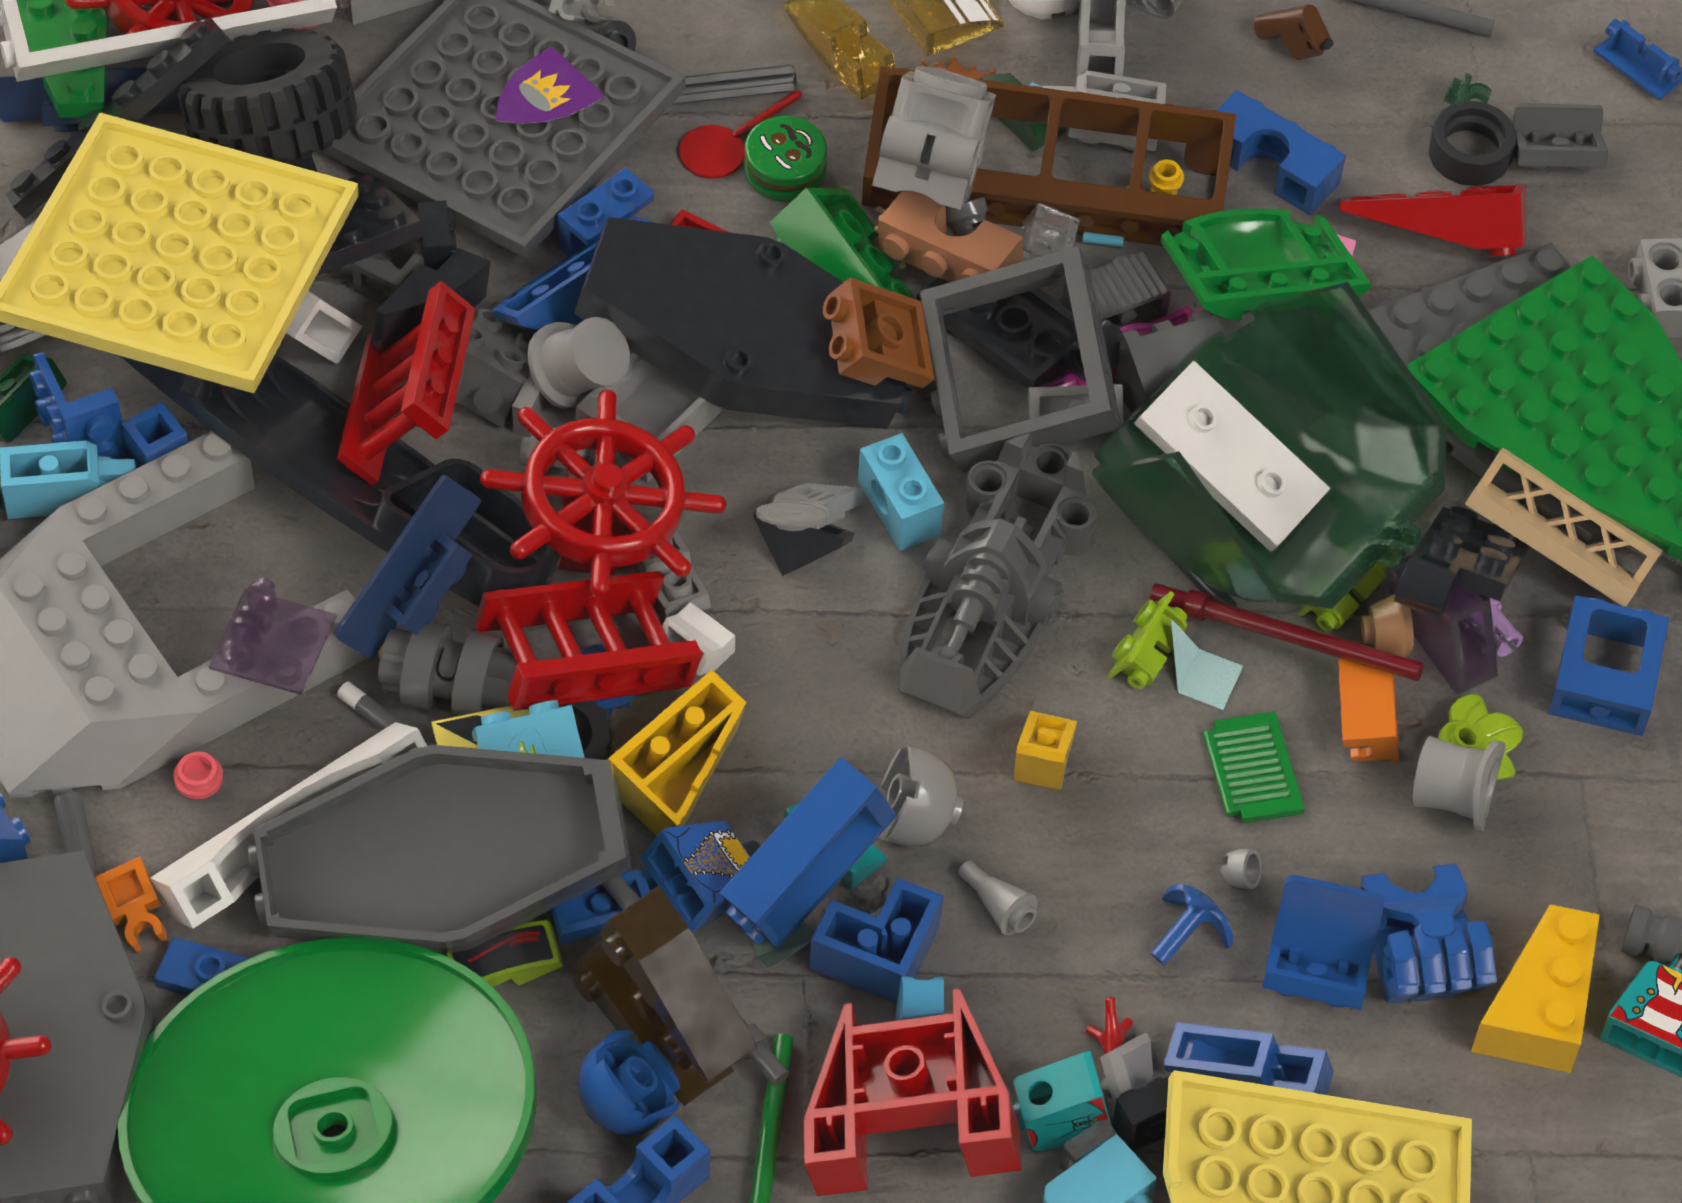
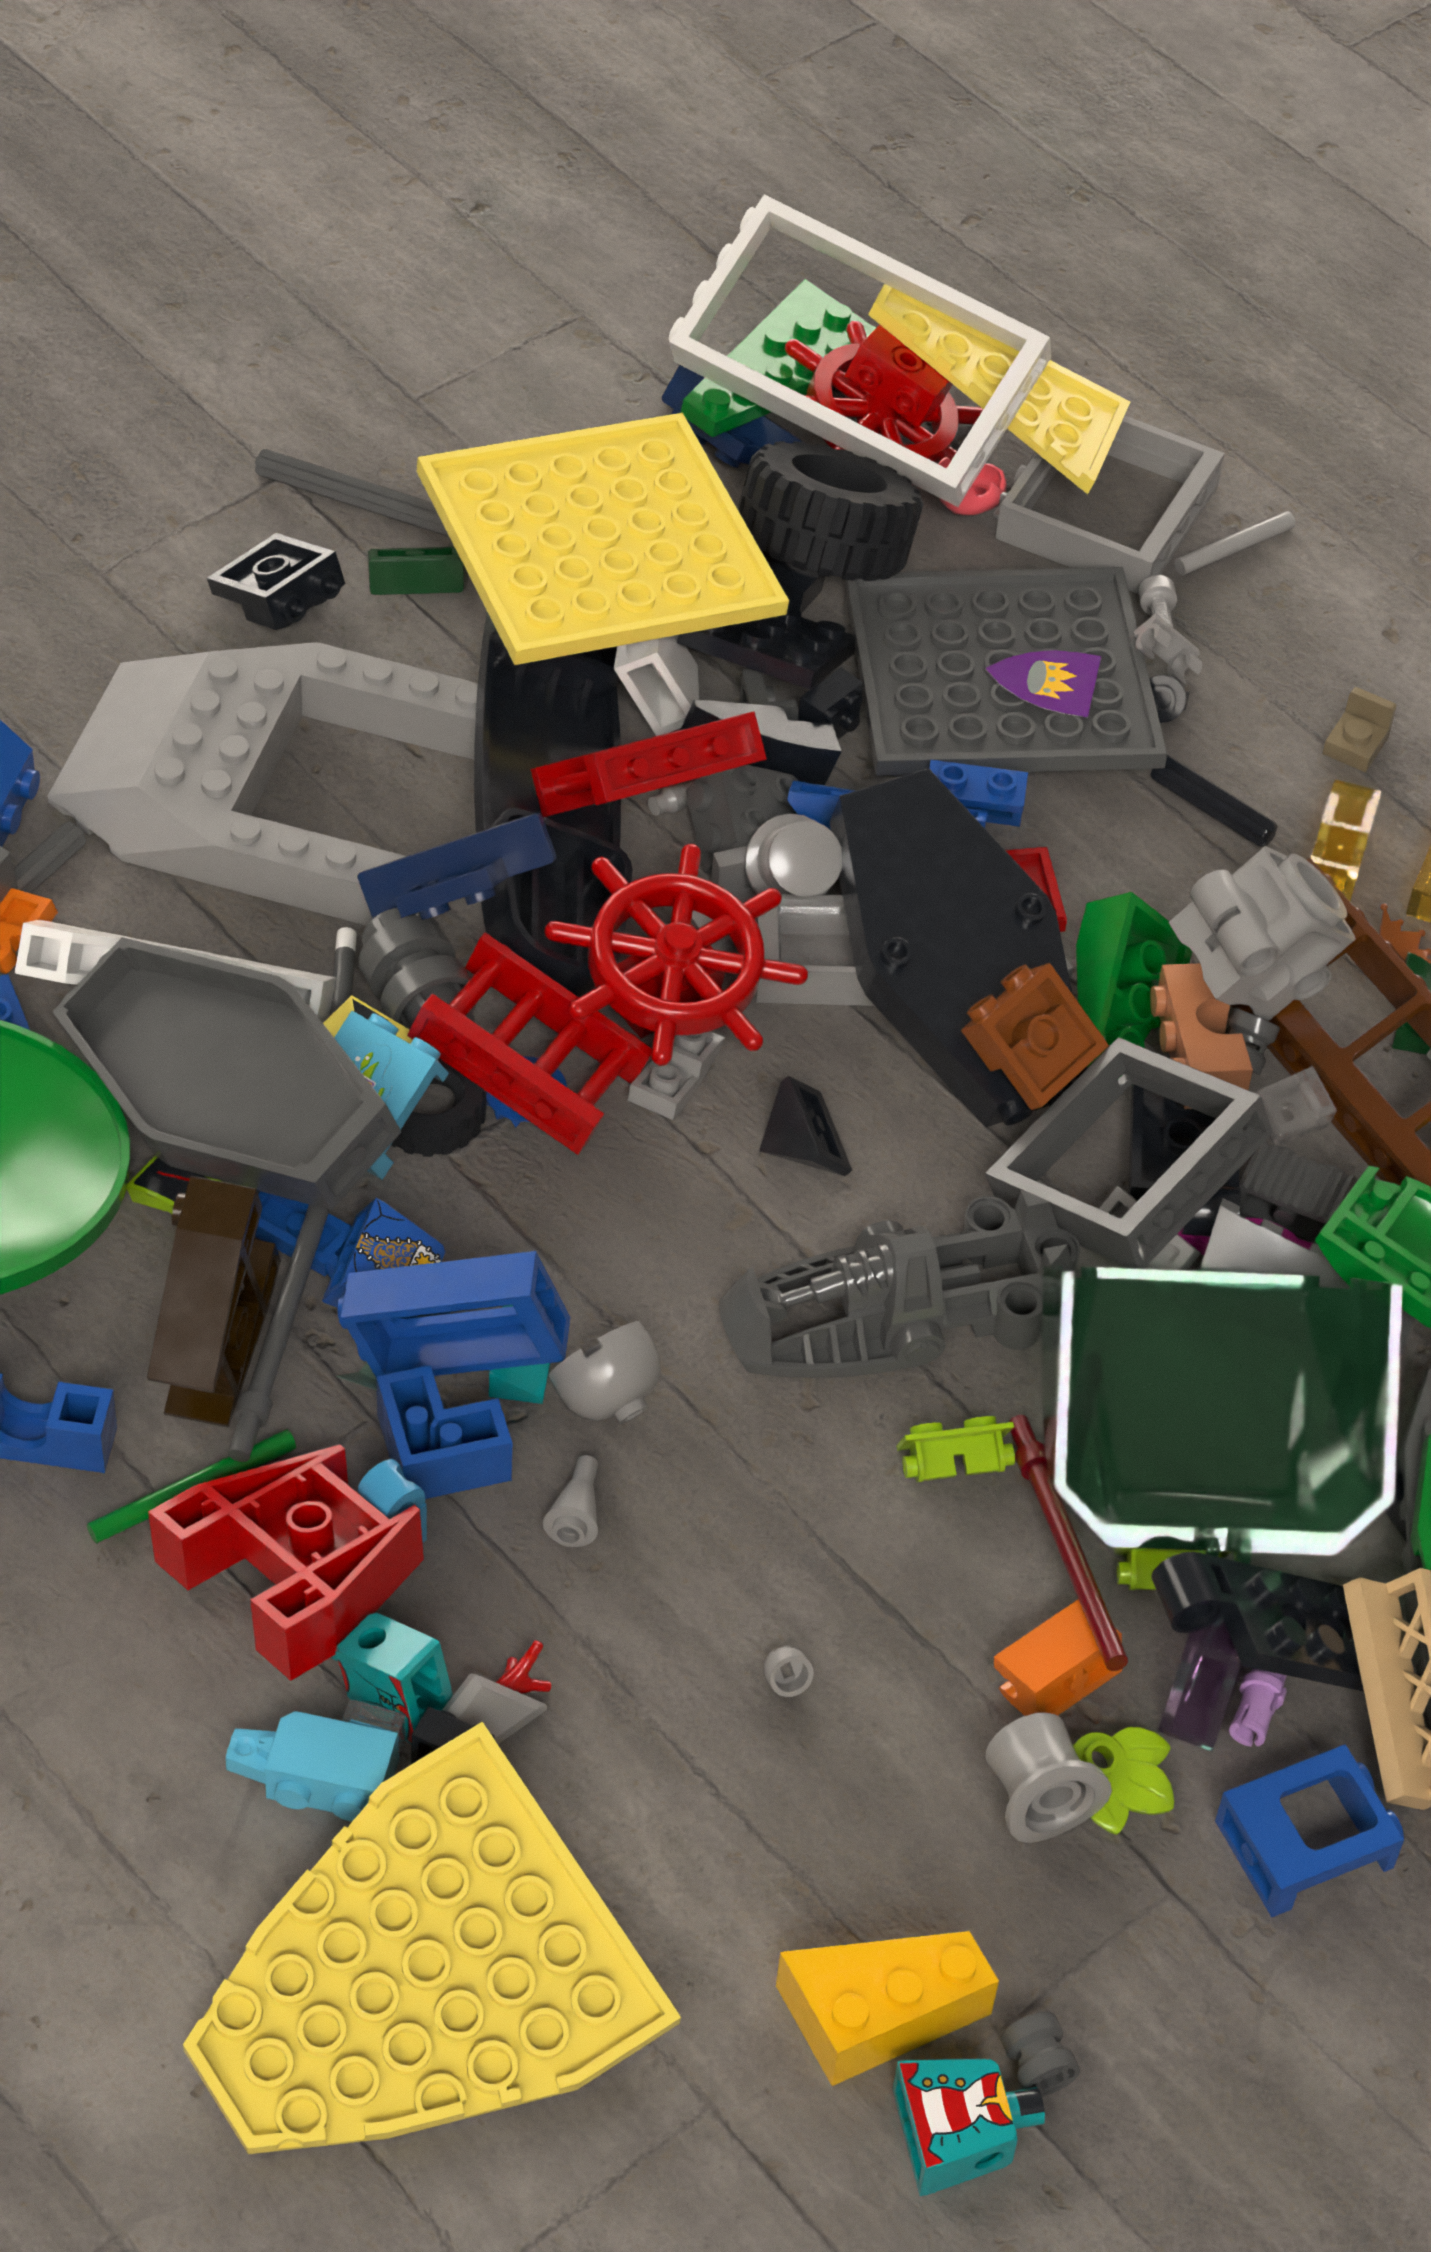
camera: 50 degrees right, 5 degrees down
(50, 475) = (345, 618): medium azure hinge -> none
(90, 418) = (413, 605): blue bracket -> none
(130, 103) = (771, 429): black plate -> none
(152, 434) = (447, 653): blue brick -> none
(198, 775) = (173, 894): coral plate -> none
(272, 639) = (312, 835): clear purple hinge -> none
(627, 1085) = (116, 1344): blue cylinder -> none
(676, 754) = (488, 1179): yellow wedge -> none
(712, 638) = (624, 1129): white piece -> none
(719, 151) = (1144, 836): red piece -> none
(785, 157) = (1168, 869): green head -> none
(810, 506) = (825, 1110): light grey piece -> none
(900, 492) = (917, 1167): medium azure brick -> none
(1044, 750) = (758, 1431): yellow slope -> none
(1103, 239) = (1353, 1152): medium azure piece -> none
(1199, 910) = (703, 1657): blue plant -> none
(1202, 673) = (971, 1511): clear light blue sticker -> none
(1233, 456) = (1203, 1376): white plate -> none
(1247, 1058) = (582, 1805): blue slope -> none
(1253, 768) = (910, 1617): green window -> none
(1323, 942) = (756, 1780): blue bracket -> none
(1388, 627) = (1152, 1629): medium nougat cone -> none
(1426, 940) = (847, 1861): blue piece -> none

